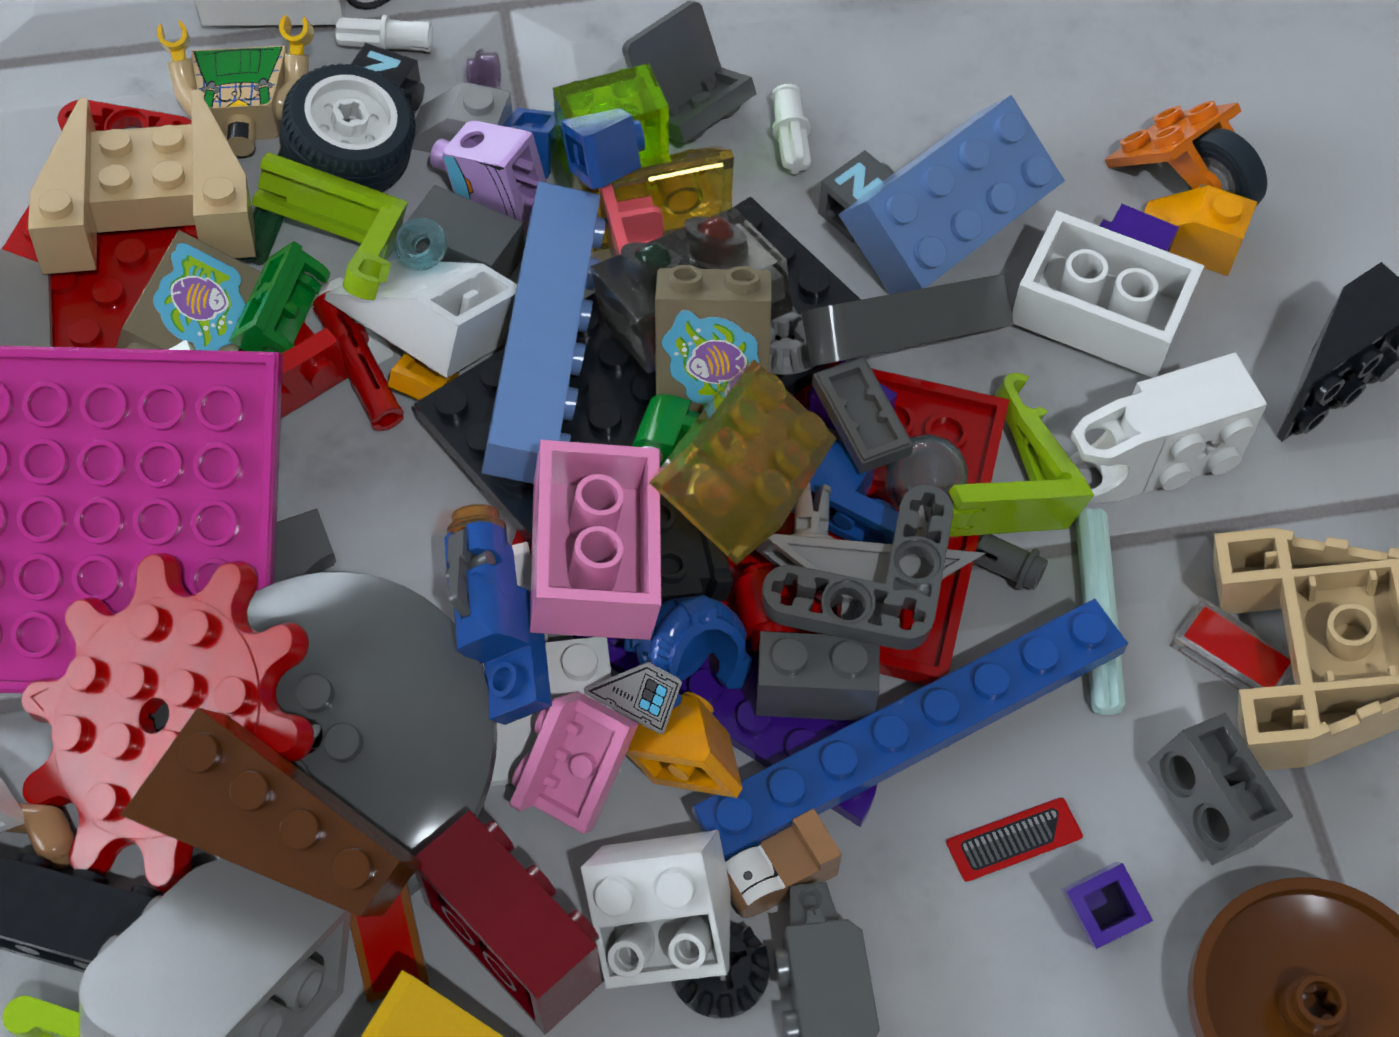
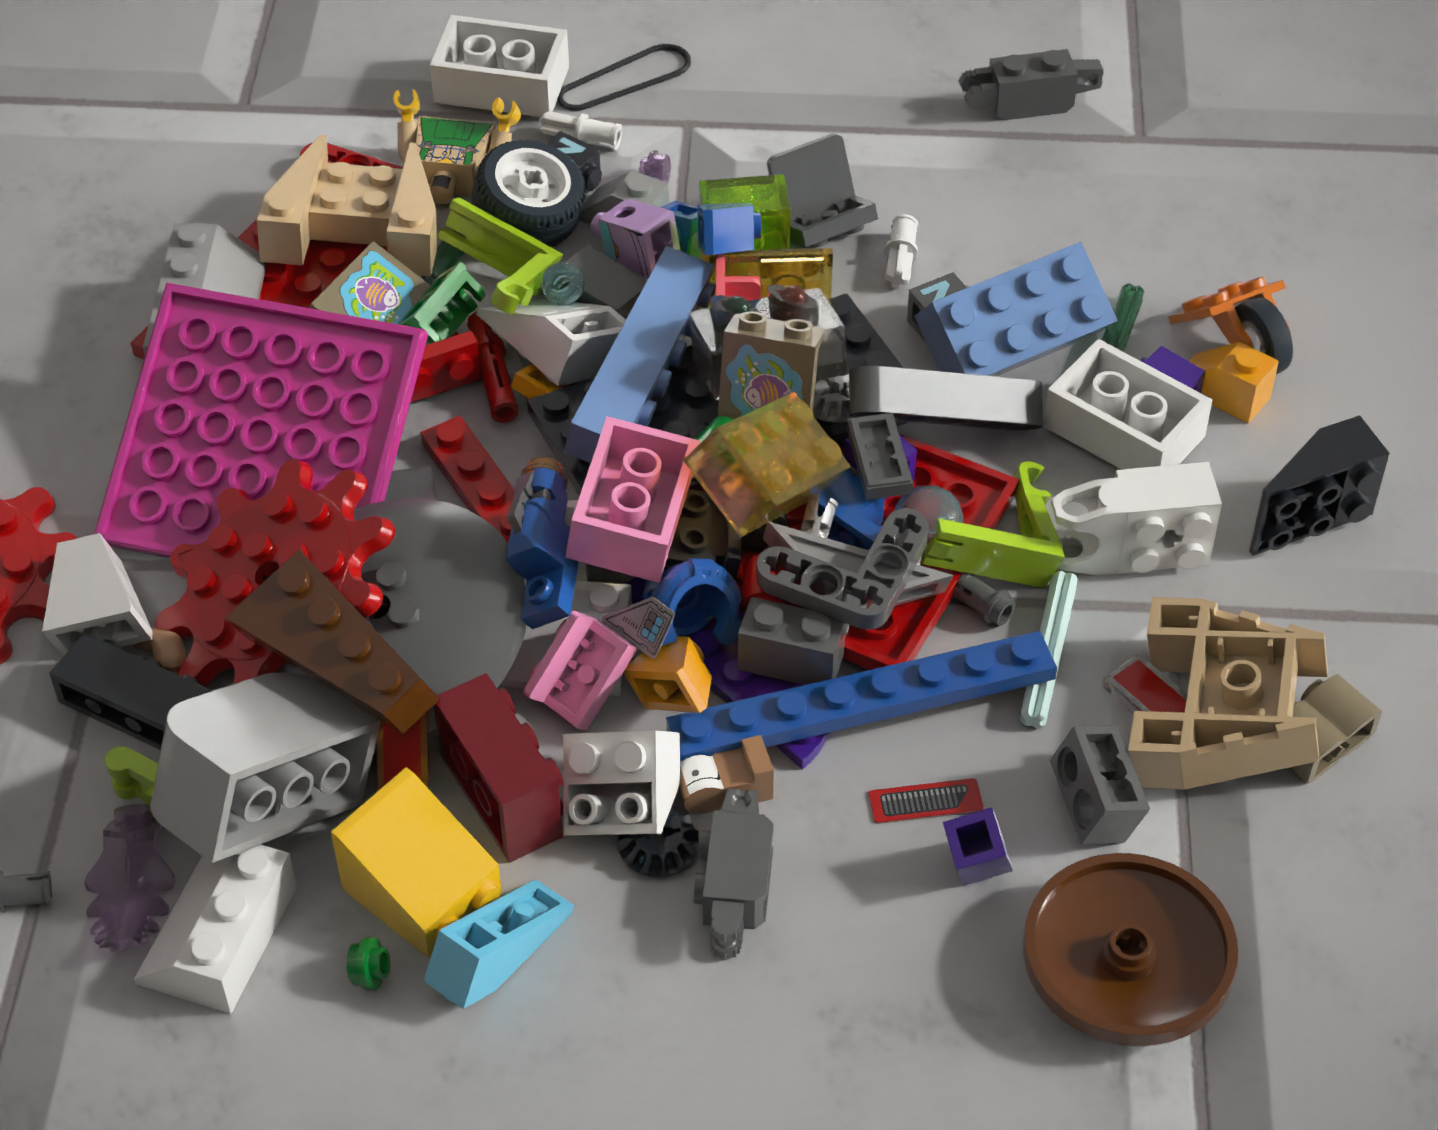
camera: 15 degrees right, 10 degrees down
(377, 517) = (470, 471): none -> red plate
(1061, 150) = (1126, 312): none -> clear green axle

